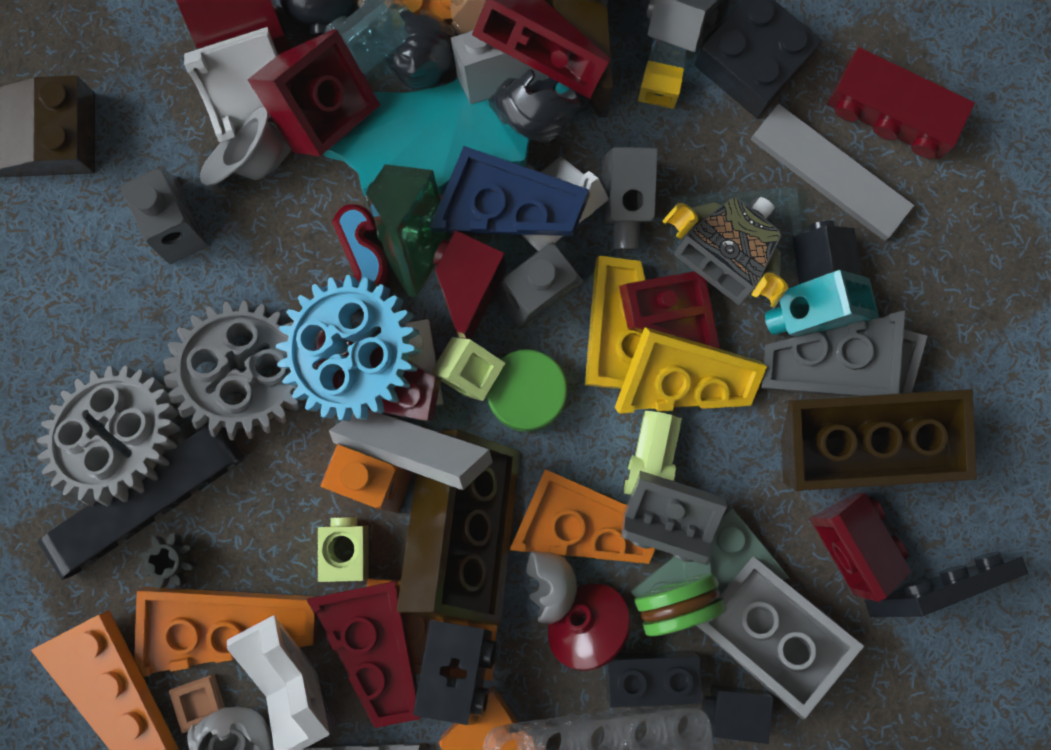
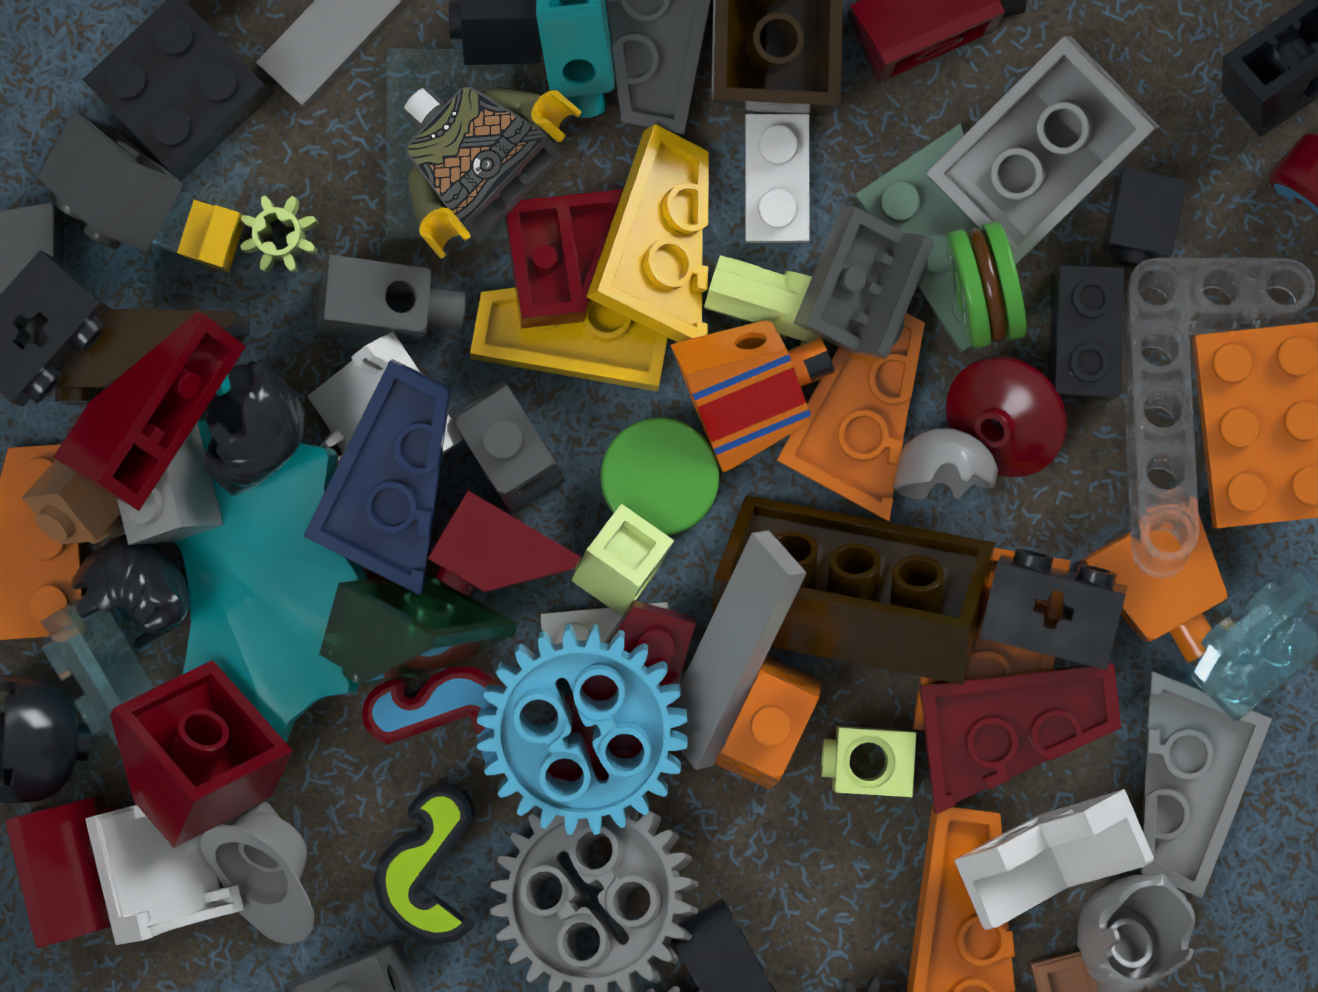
camera: 85 degrees left, 5 degrees up
(254, 245) = (412, 860): none -> animal
(593, 444) = (749, 387): none -> torso
(662, 137) = (262, 228): none -> yellowish green gear
(737, 454) = (777, 178): none -> white plate

